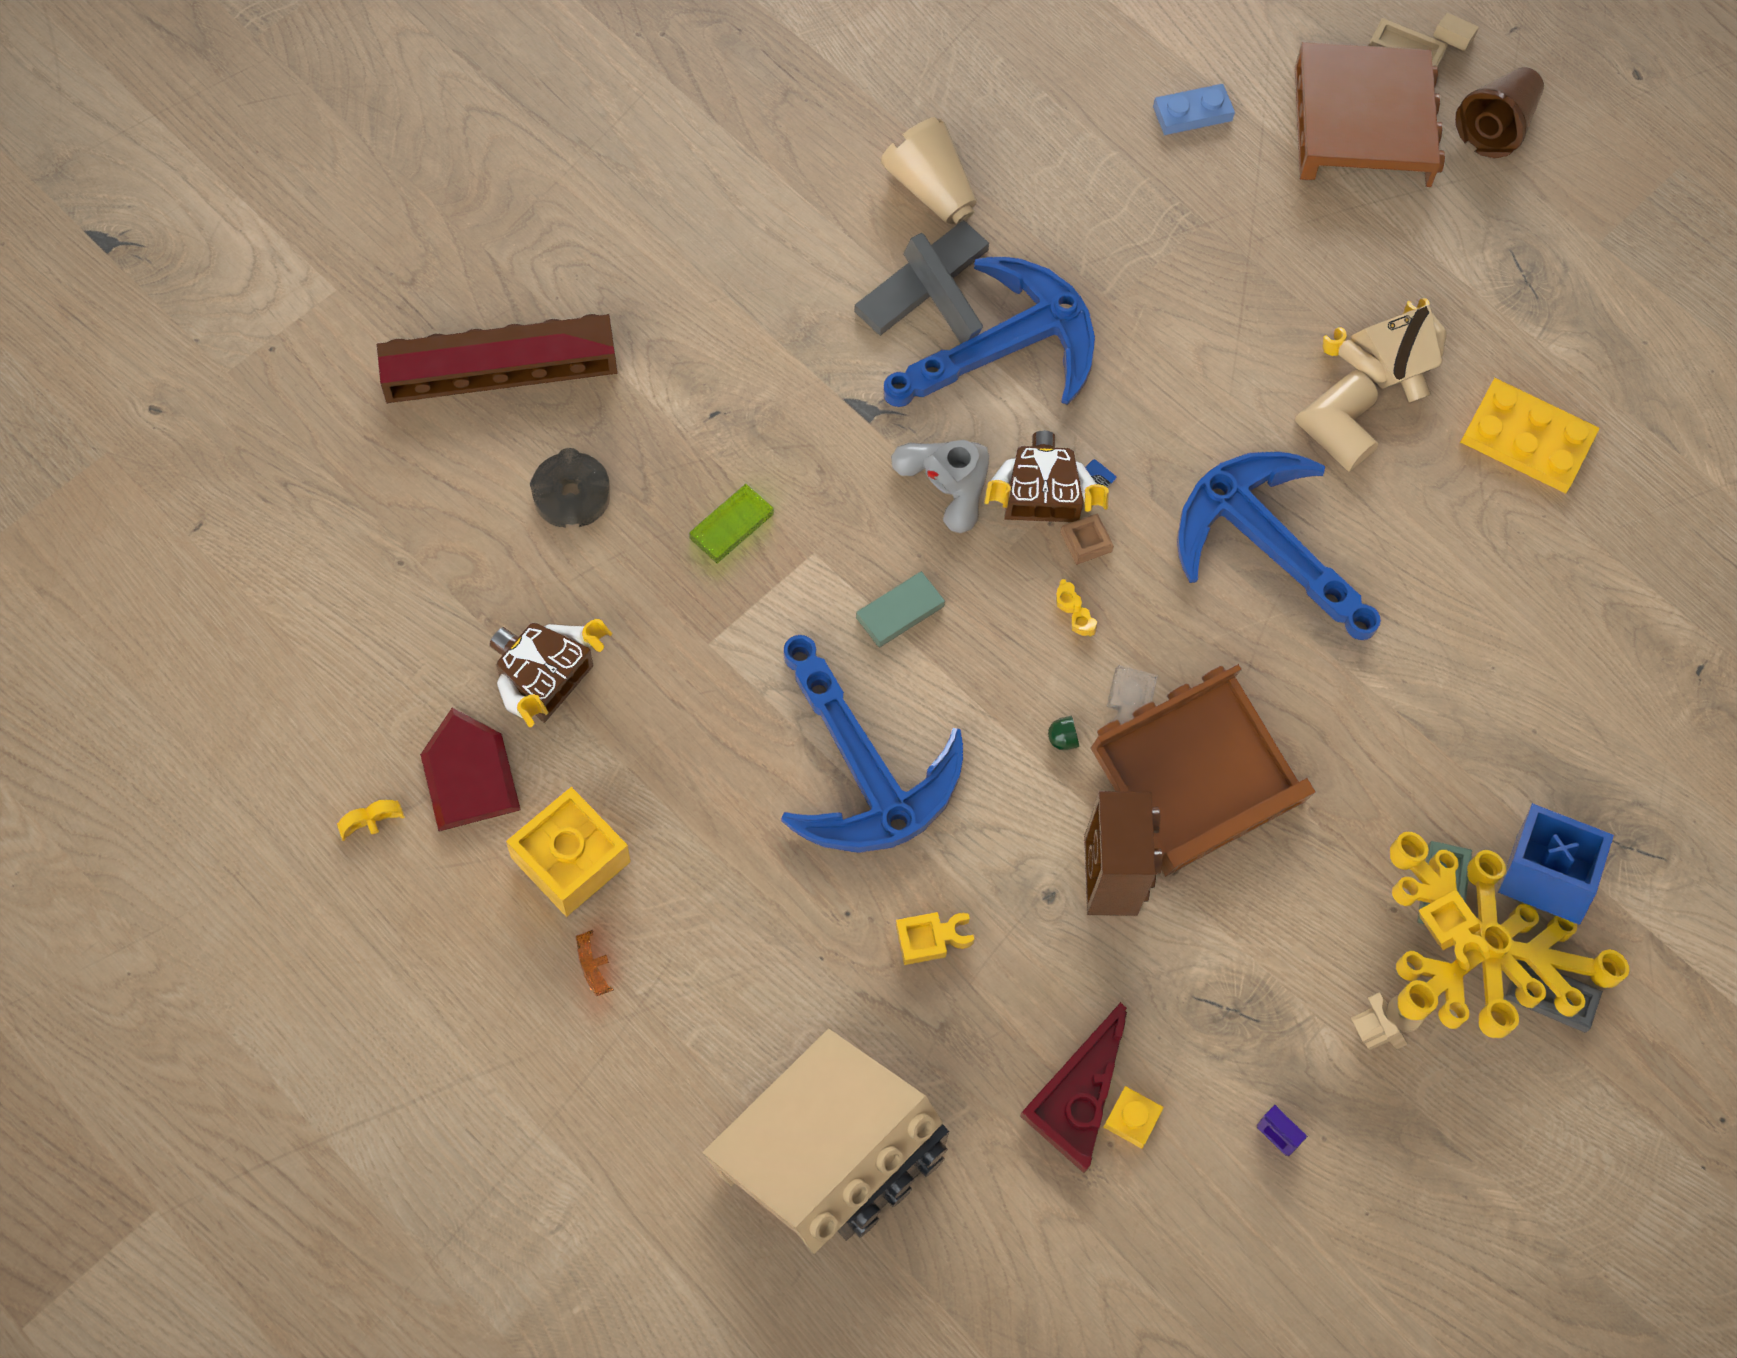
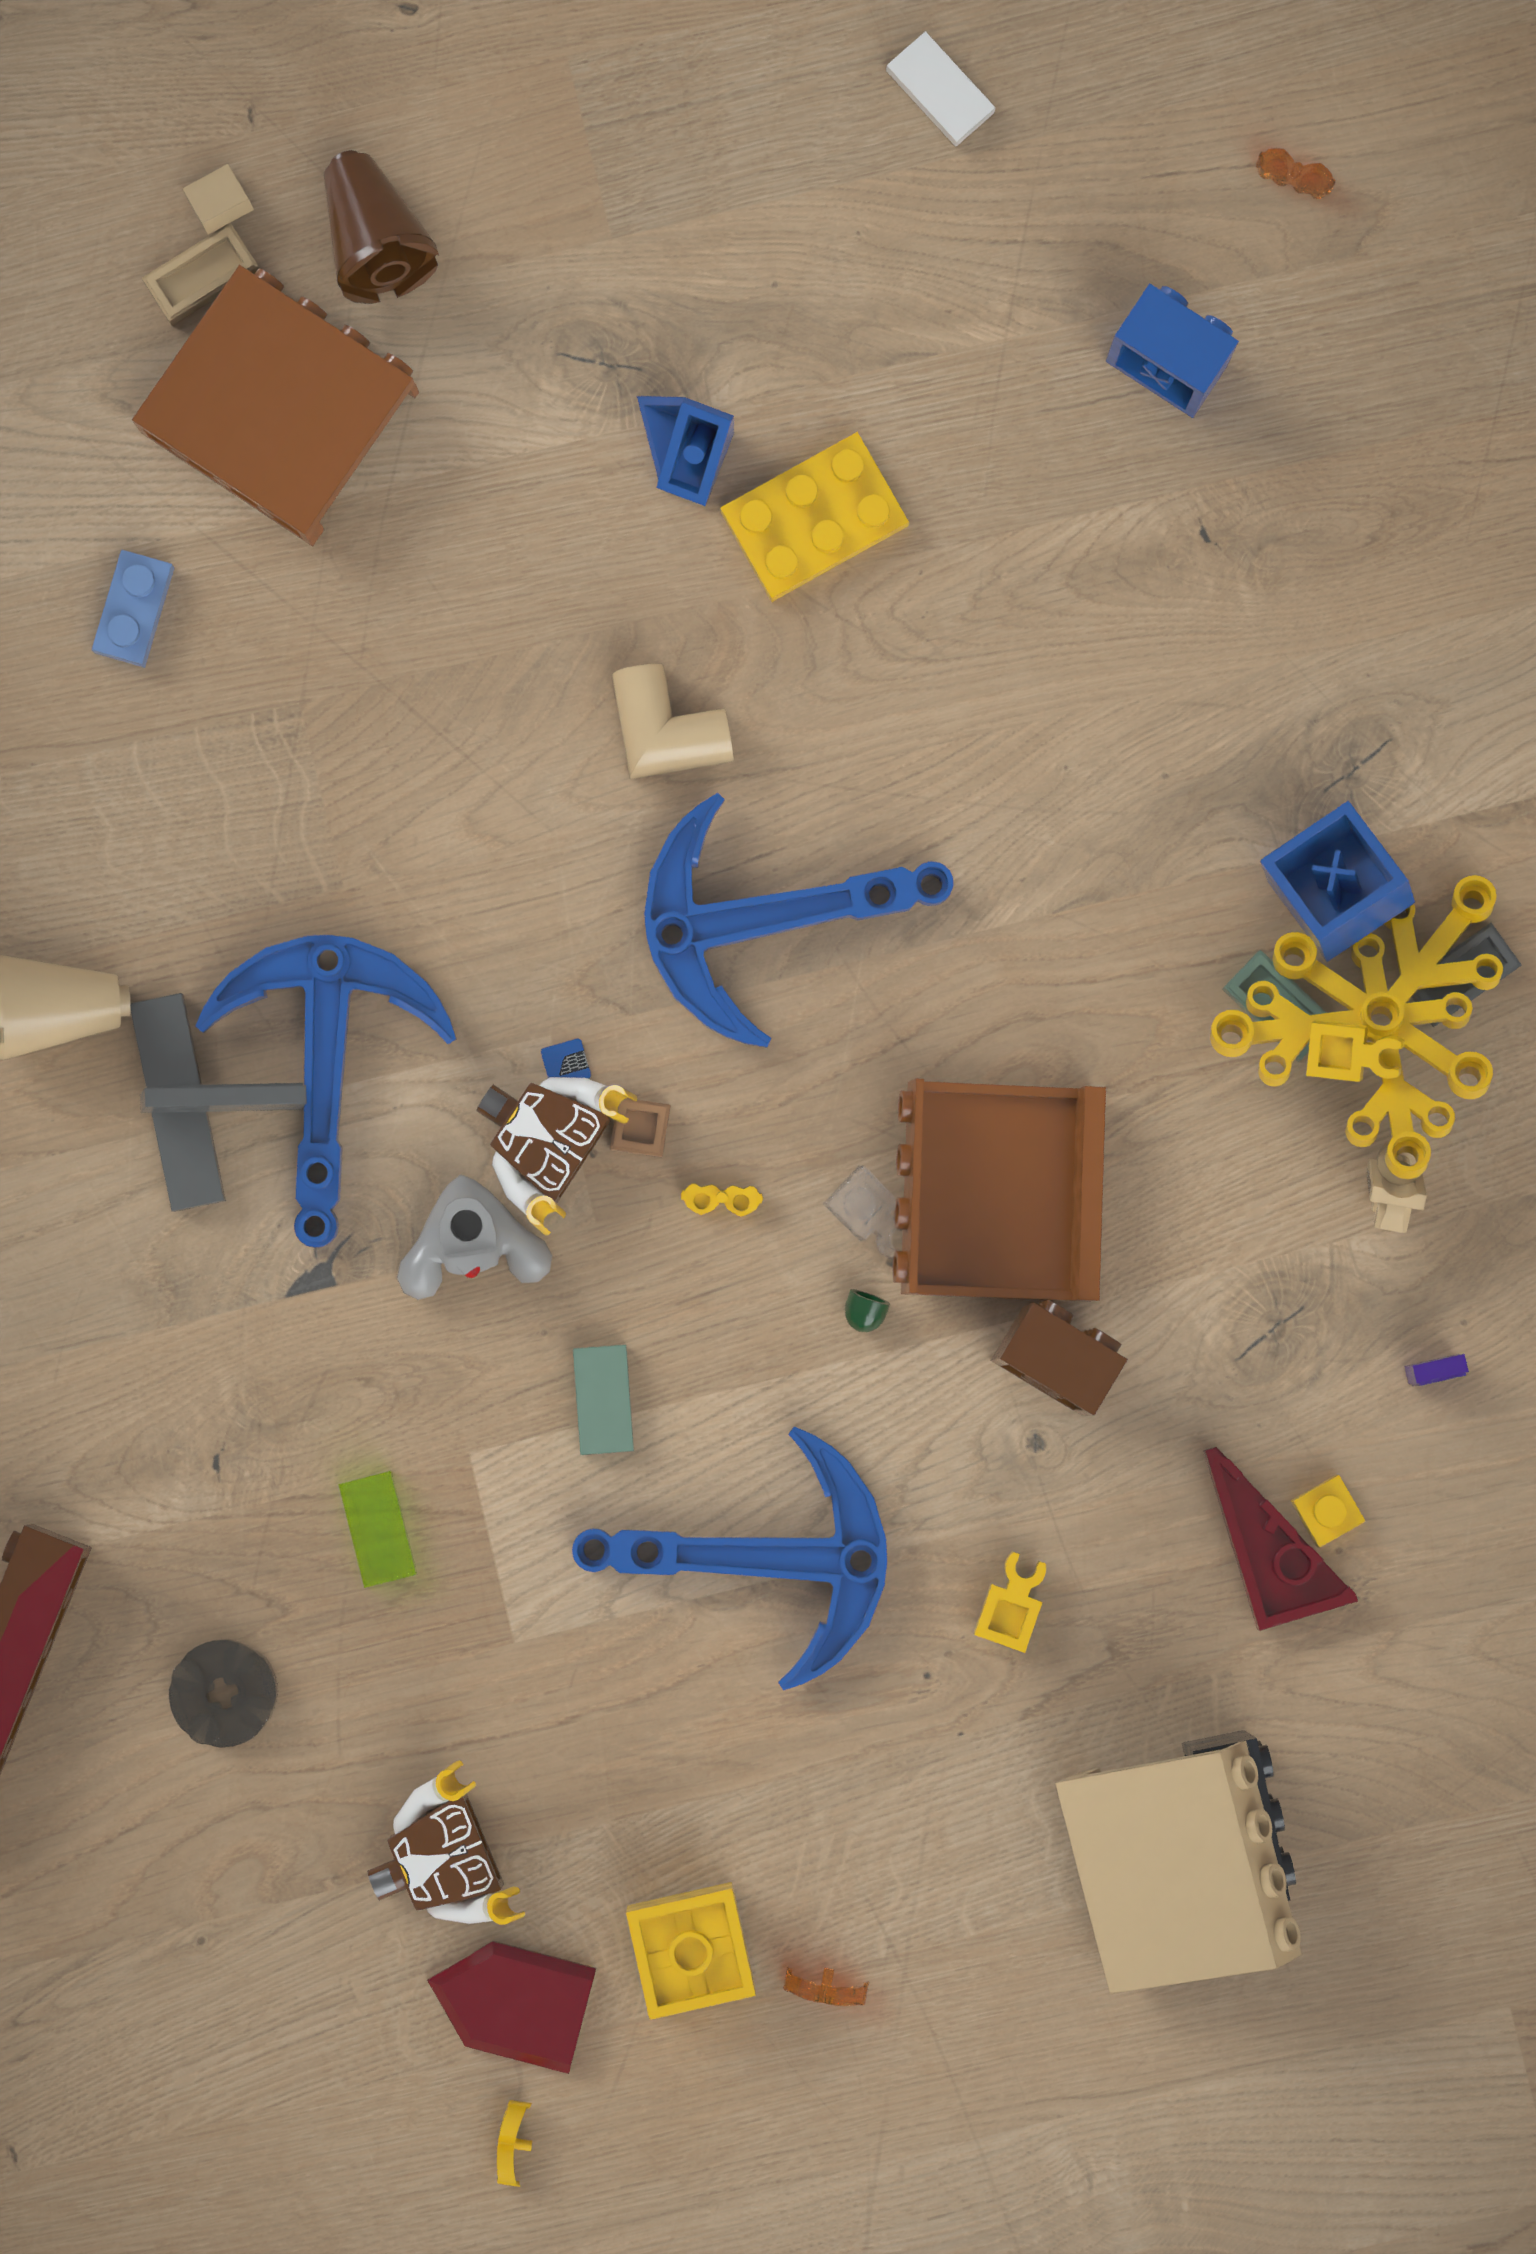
camera: 60 degrees left, 20 degrees up
(1395, 349) = (621, 600): tan torso -> none
(1519, 341) = (686, 444): none -> blue slope

